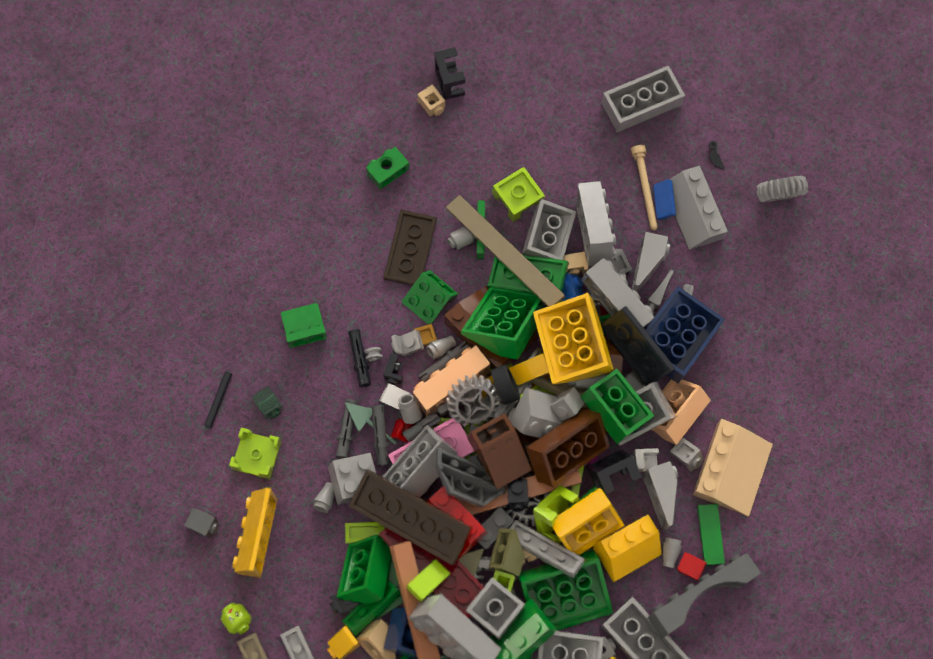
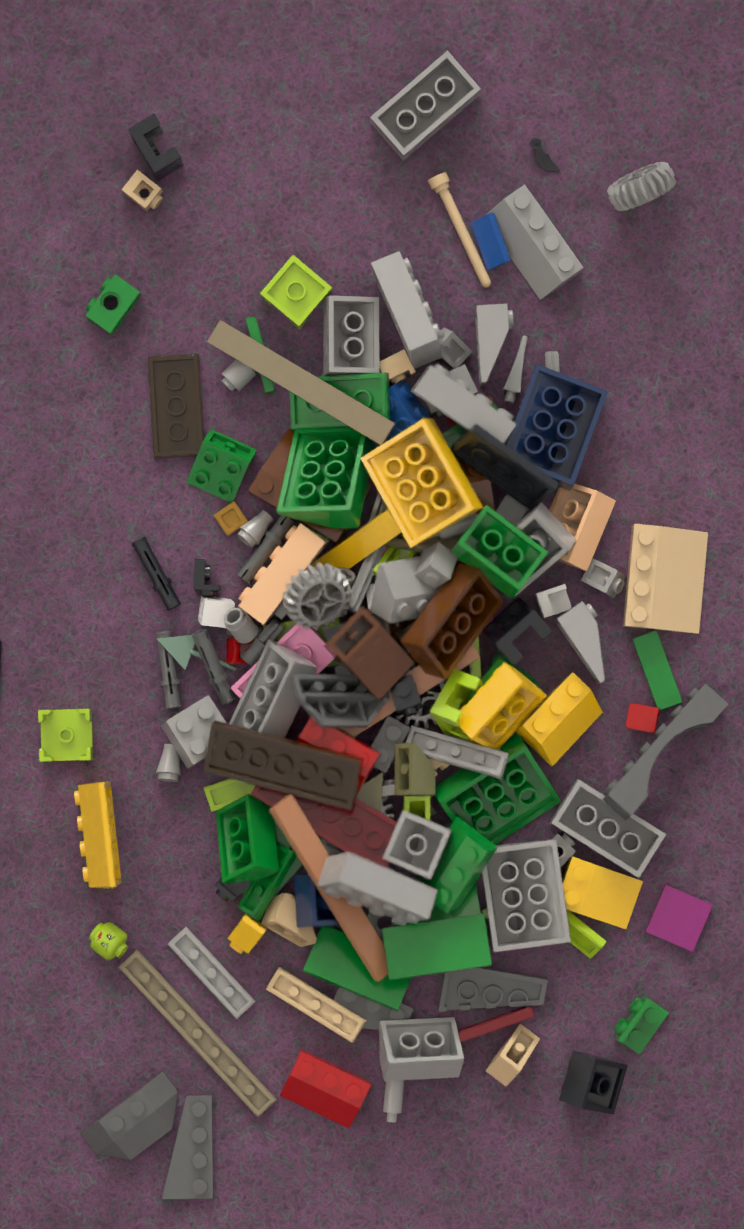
camera: 10 degrees left, 15 degrees up
(201, 523) = (28, 839): dark grey brick -> none
(267, 403) = (60, 667): clear green brick -> none
(303, 325) = (71, 551): green bracket -> none
(373, 354) = (172, 563): light grey bush -> none
(407, 343) = (211, 537): light grey bracket -> none
(428, 580) = (327, 835): lime tile -> none
(505, 384) = (352, 563): black tyre -> none
(671, 551) = (613, 706): light grey cone -> none

